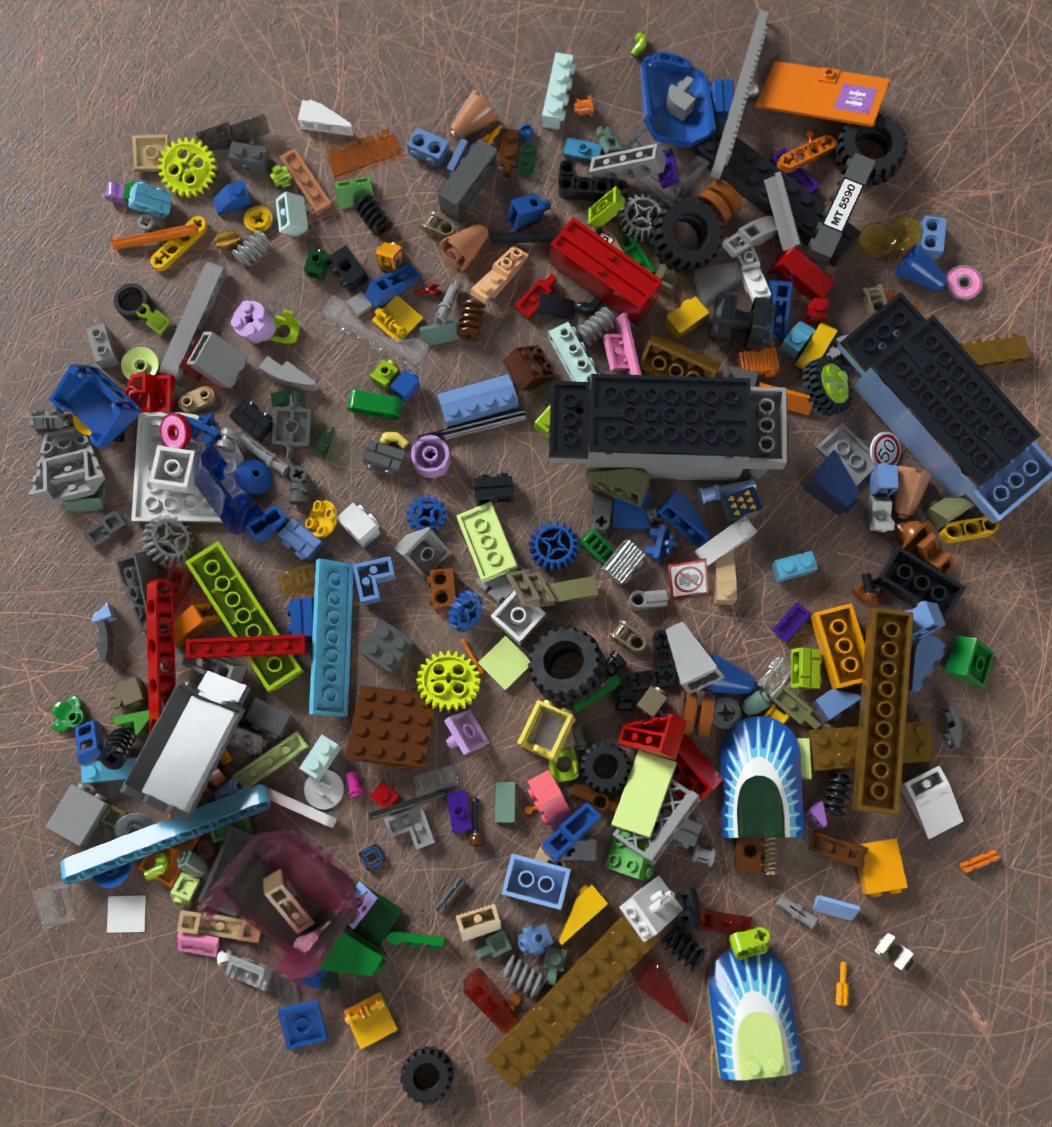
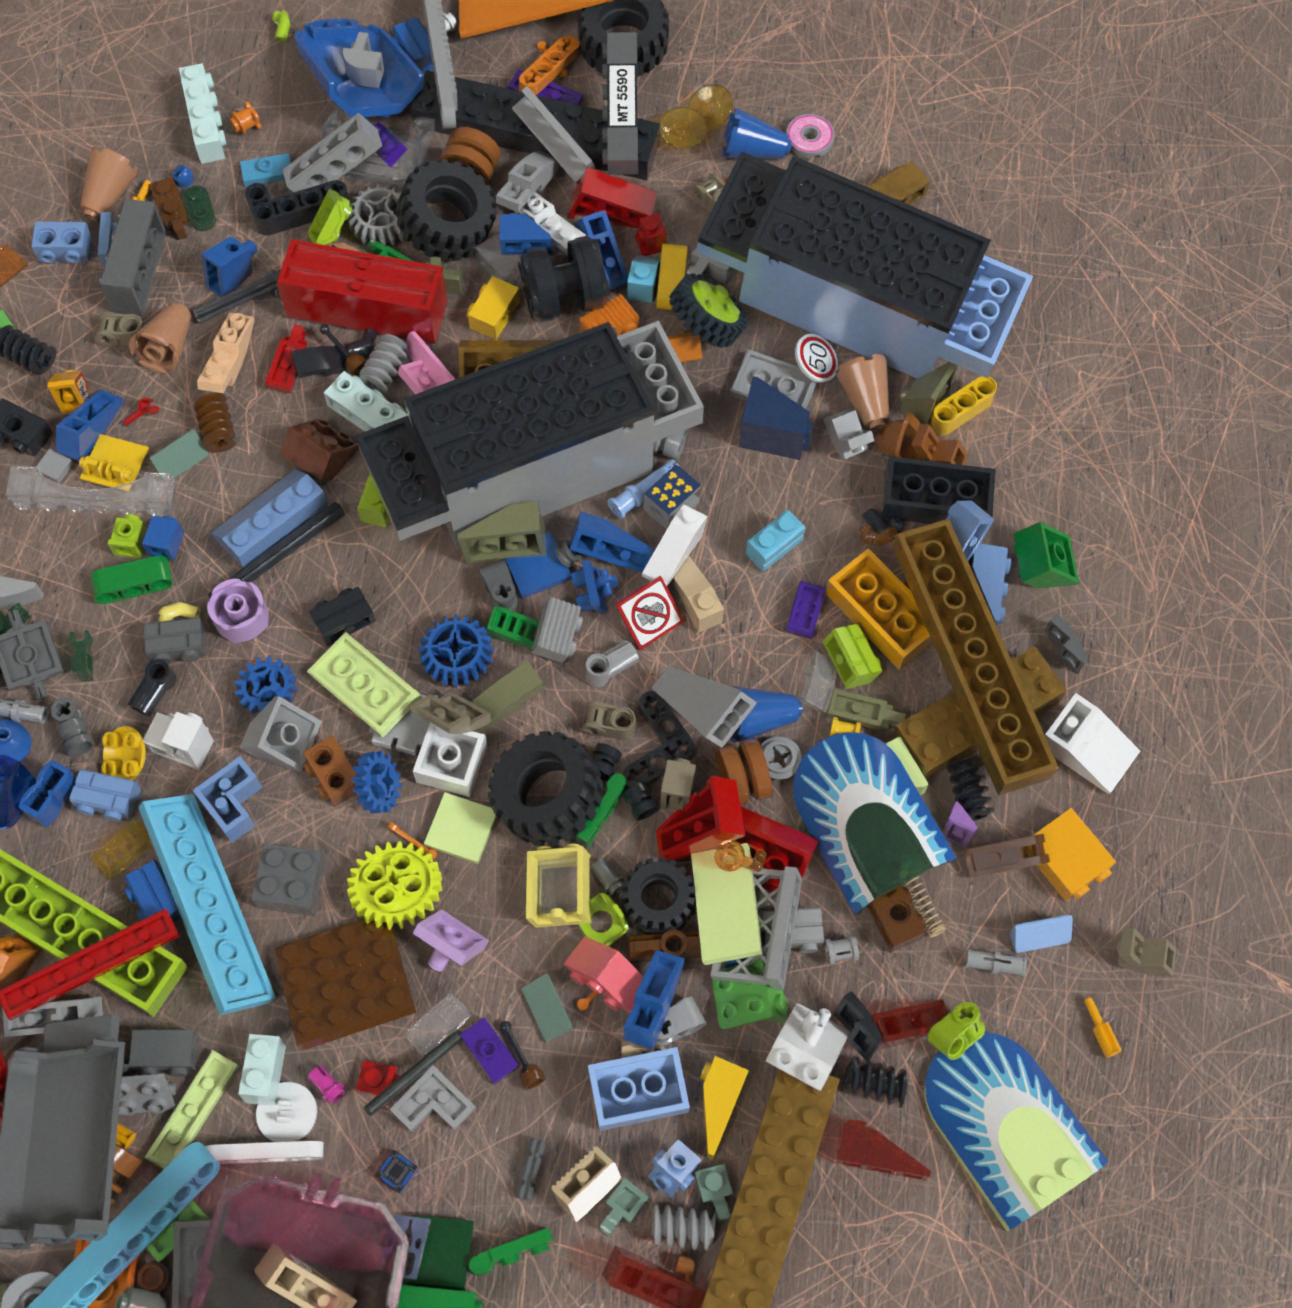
camera: 30 degrees left, 10 degrees down
(228, 788) = (146, 1173): medium blue brick -> none
(356, 485) = (151, 690): none -> black piece
(445, 307) = (173, 419): light grey pin -> none
(578, 317) = (354, 361): none -> hinge
(608, 142) = (291, 144): sand green plate -> none
(665, 766) = (735, 849): none -> clear orange plate
(727, 276) = (521, 232): none -> blue slope
(756, 703) = (812, 725): sand green brick -> none
(834, 702) = (908, 680): medium blue slope -> none
(883, 480) = (832, 390): medium blue brick -> none
(933, 238) = (747, 94): medium blue brick -> none
(979, 861) = (1185, 791): orange axle -> none

